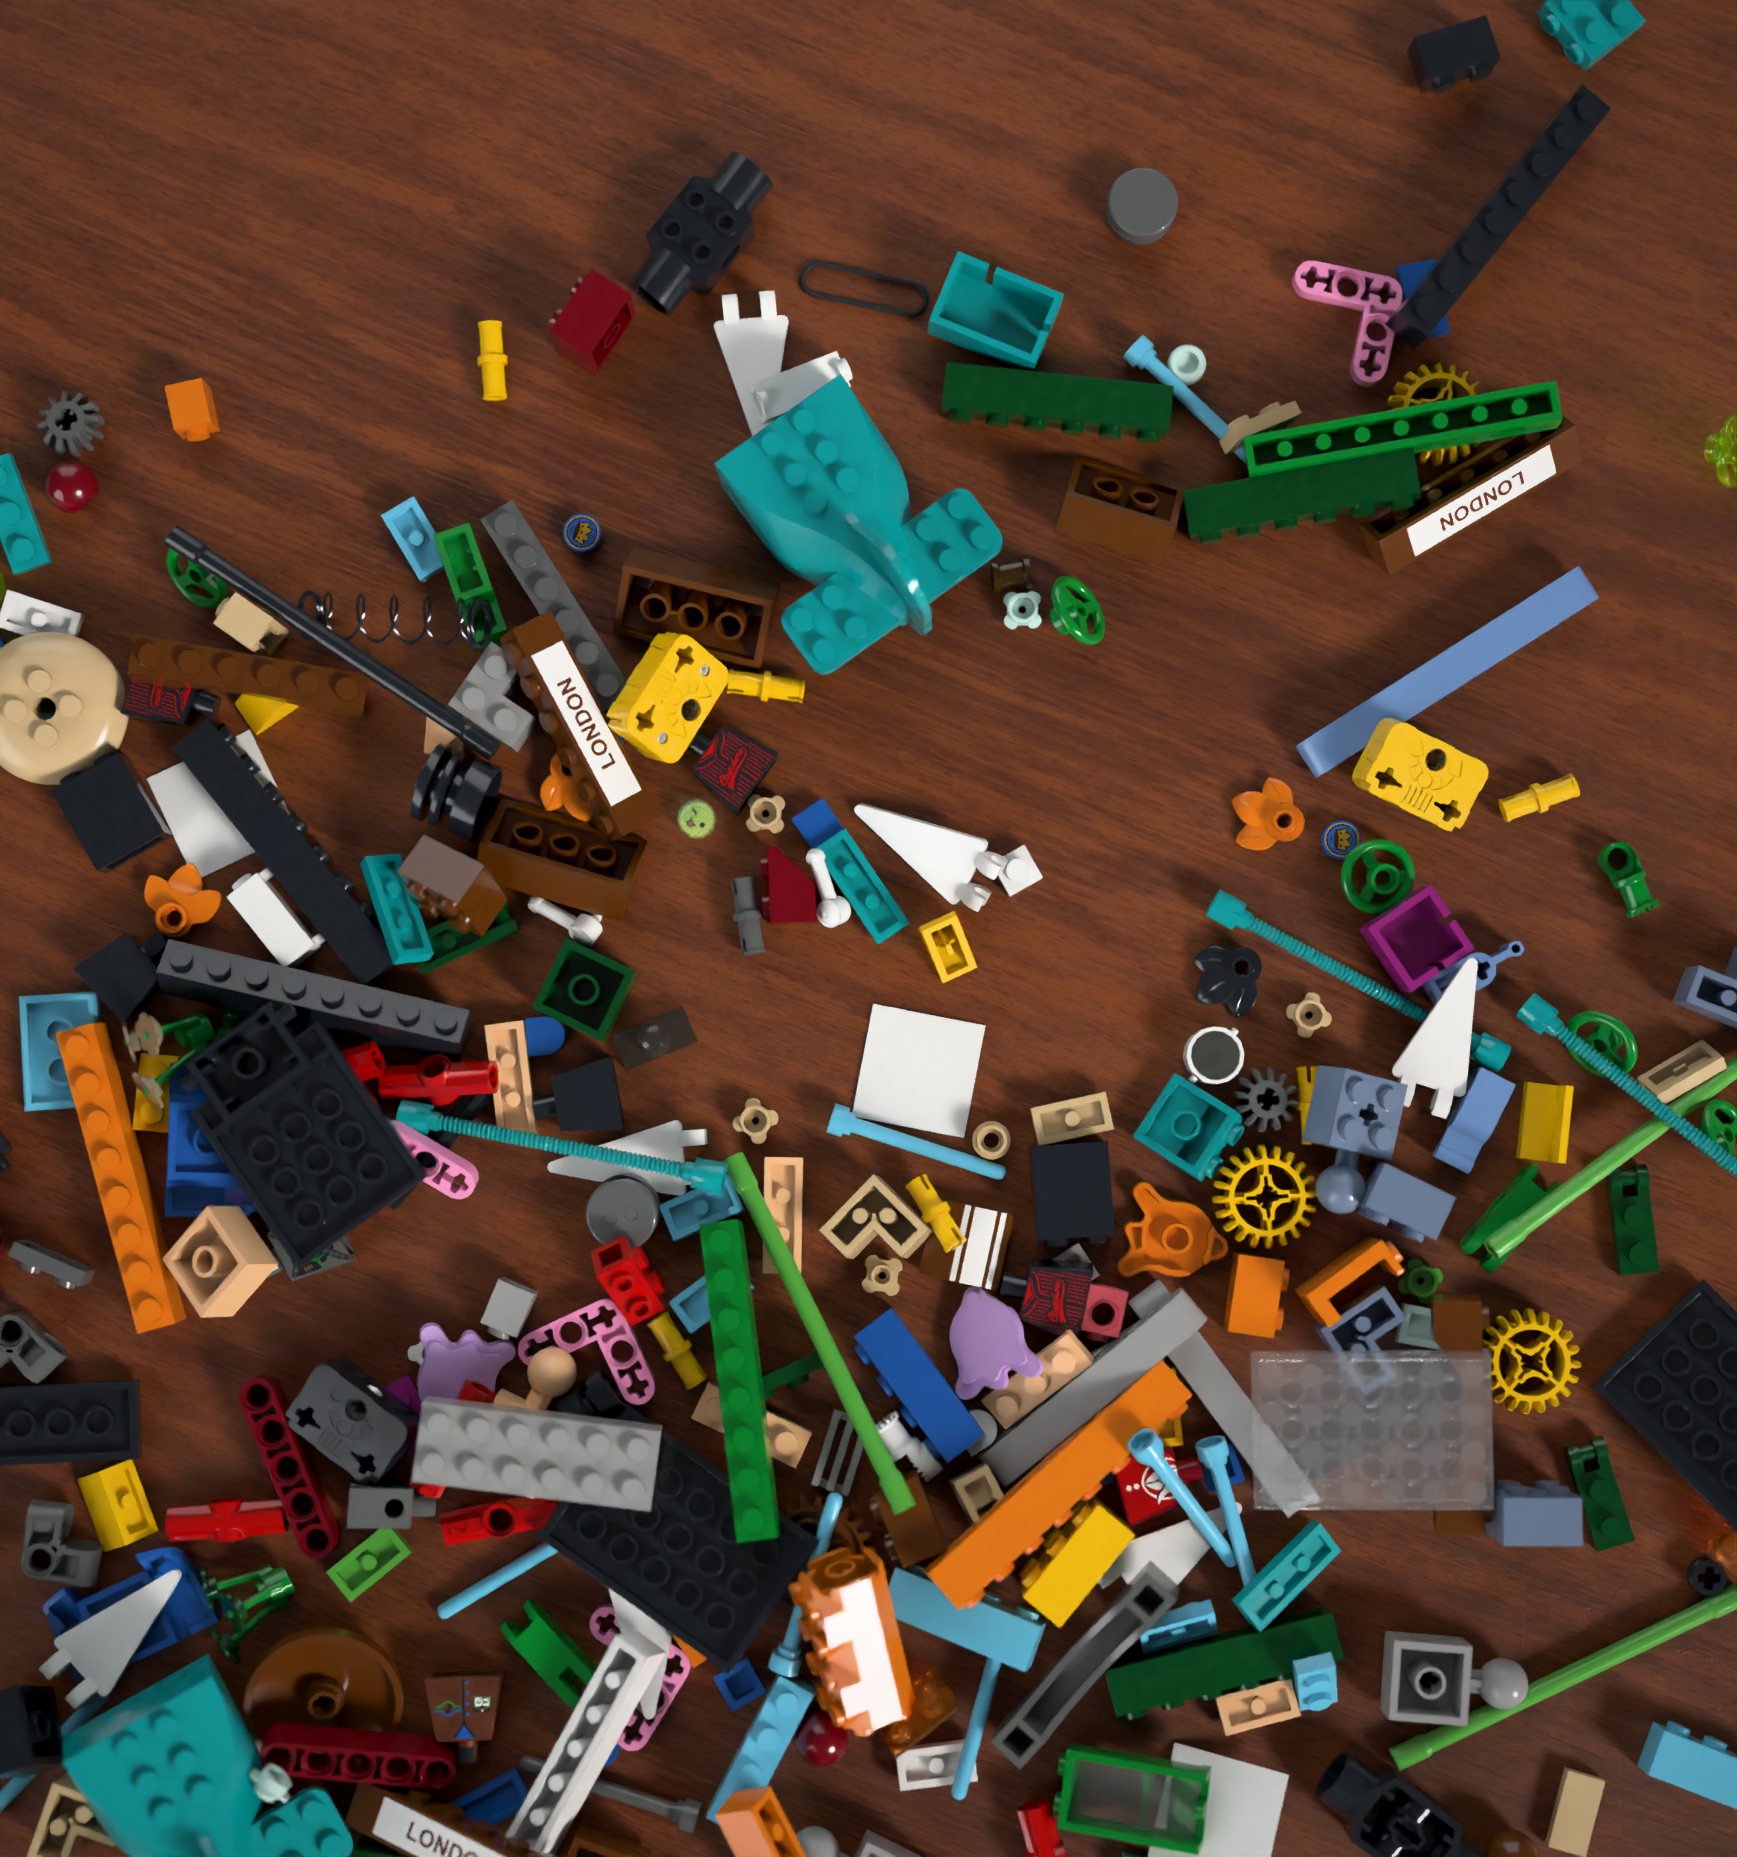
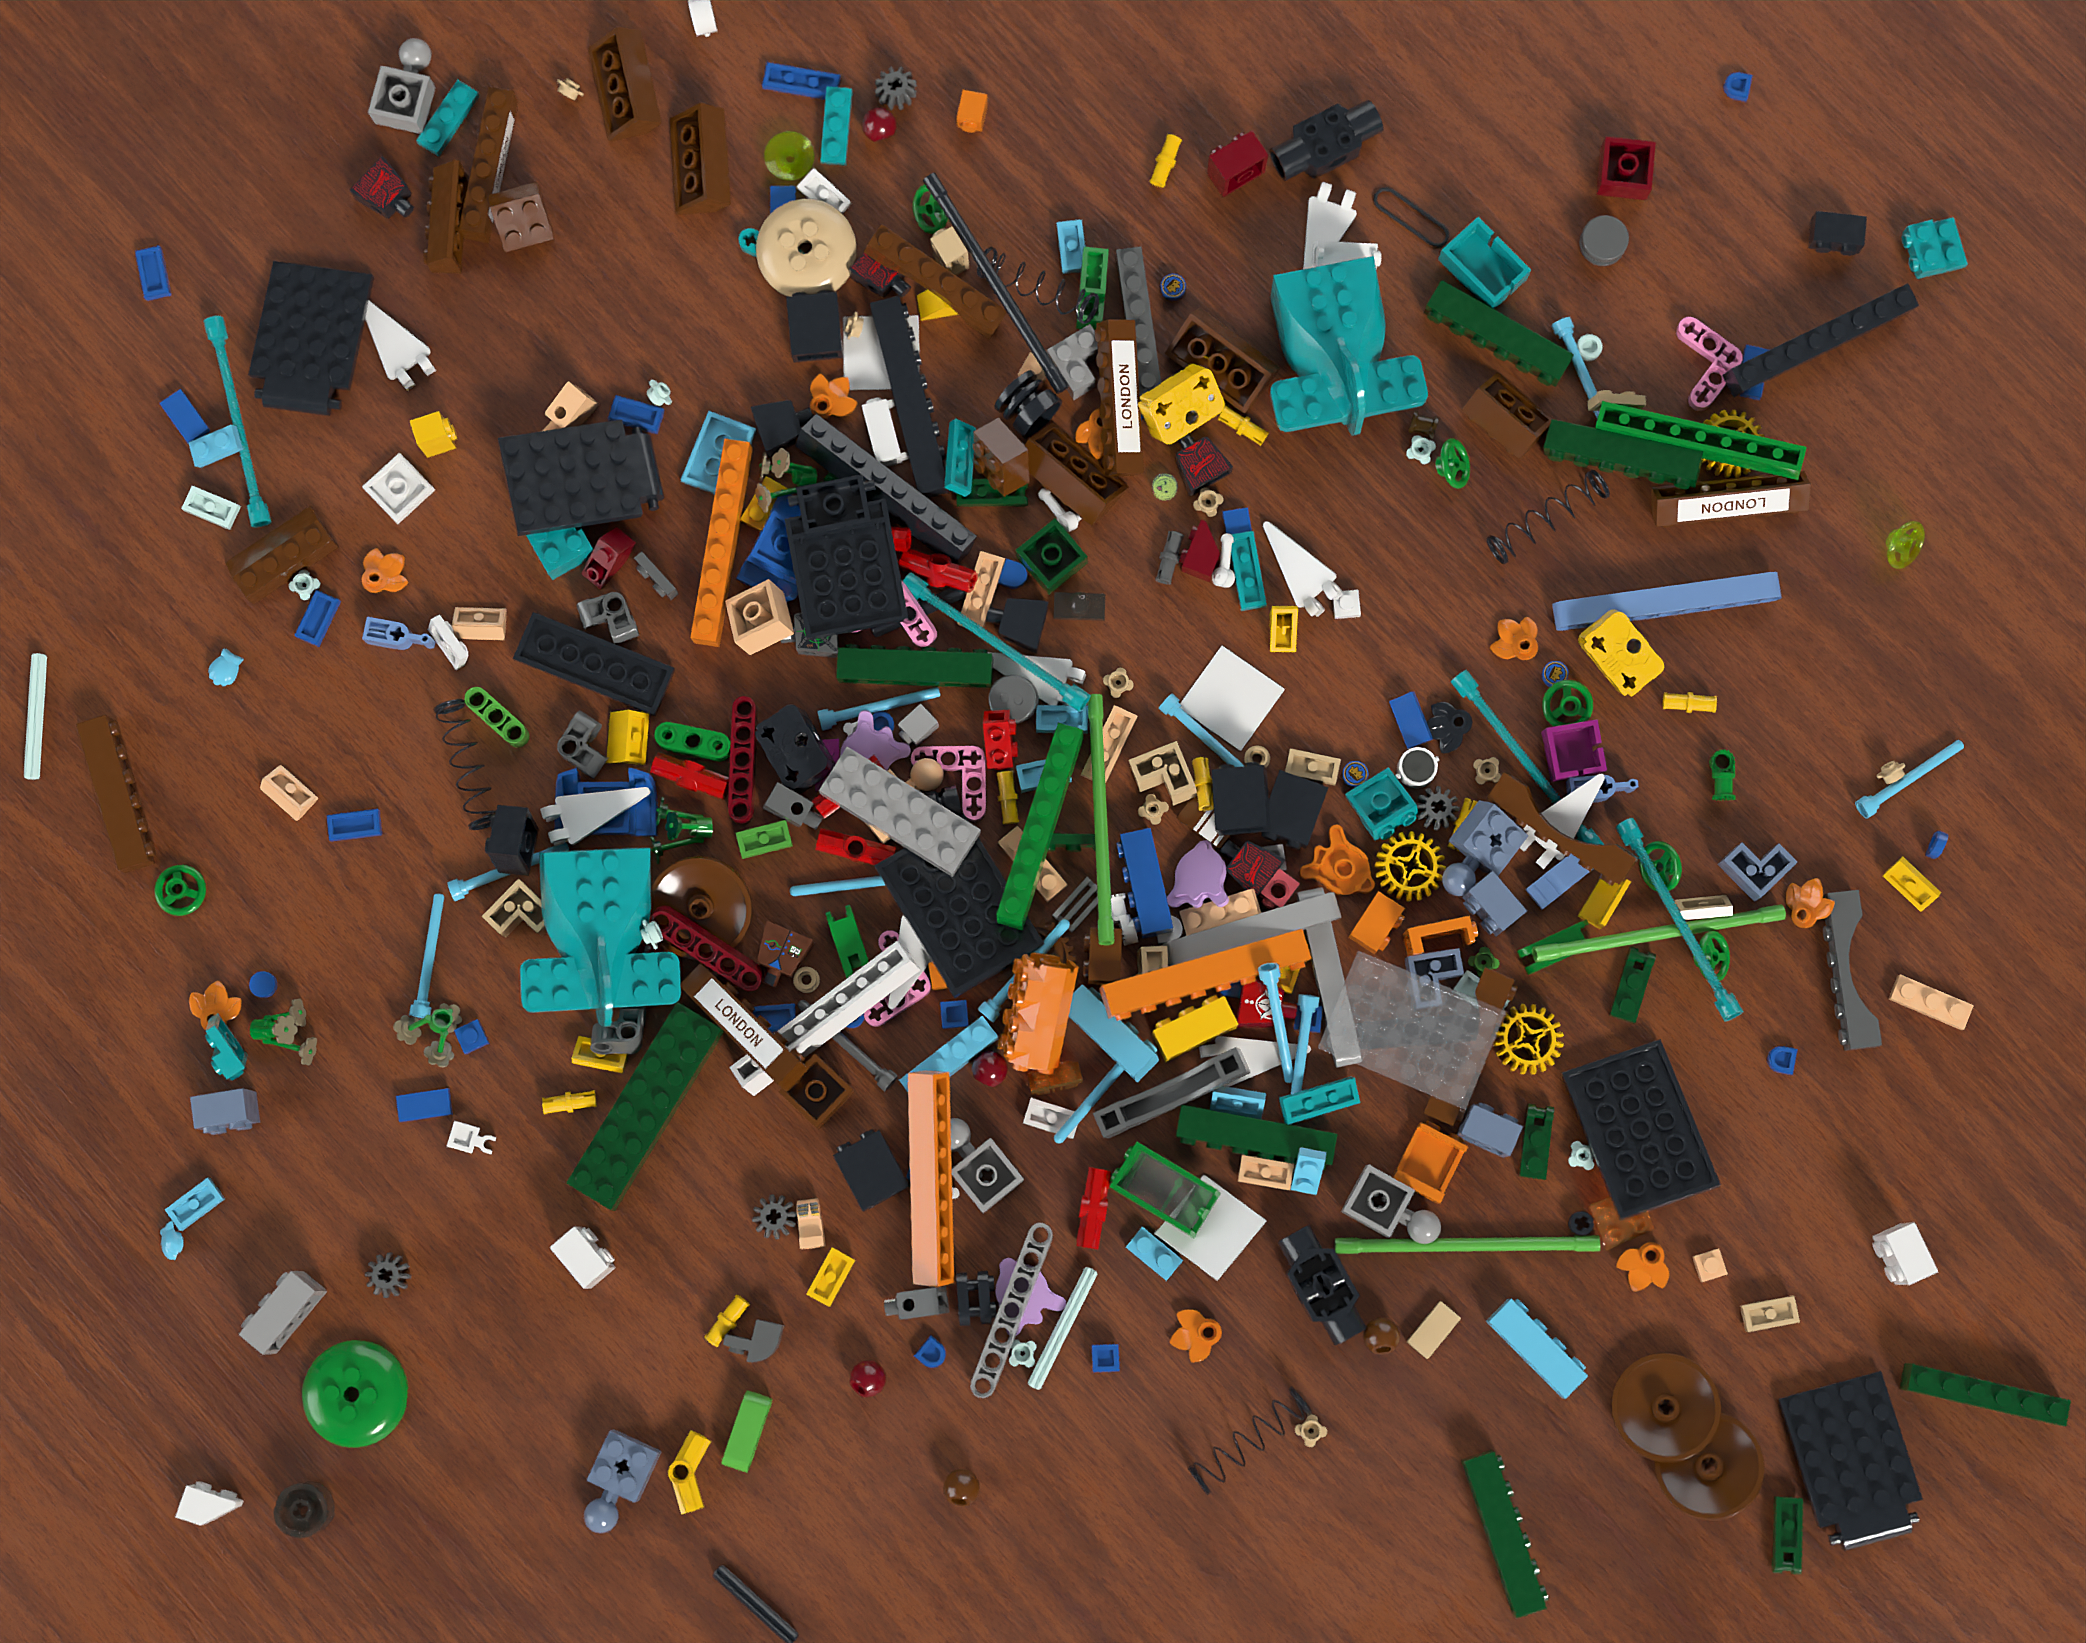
camera: 30 degrees right, 5 degrees down
(166, 787) = (854, 326): none -> tan plate
(190, 1476) = (682, 733): none -> green piece
(382, 1352) = (829, 718): none -> medium azure piece
(457, 1321) = (882, 719): none -> blue tile
(468, 1229) = (915, 667): none -> dark green brick
(510, 1737) = (803, 972): none -> tan plate
(996, 1214) = (1241, 799): none -> black brick
(1128, 91) = (1626, 168): none -> dark red brick
(1133, 1101) = (1354, 774): none -> tile
(1176, 993) = (1411, 720): none -> blue tile
(1178, 696) = (1496, 540): none -> black piece
(1468, 1590) = (1430, 1161): none -> orange panel
(1530, 1073) = (1608, 859): none -> reddish brown arch
(1661, 1494) = (1576, 1160): none -> light aqua plate

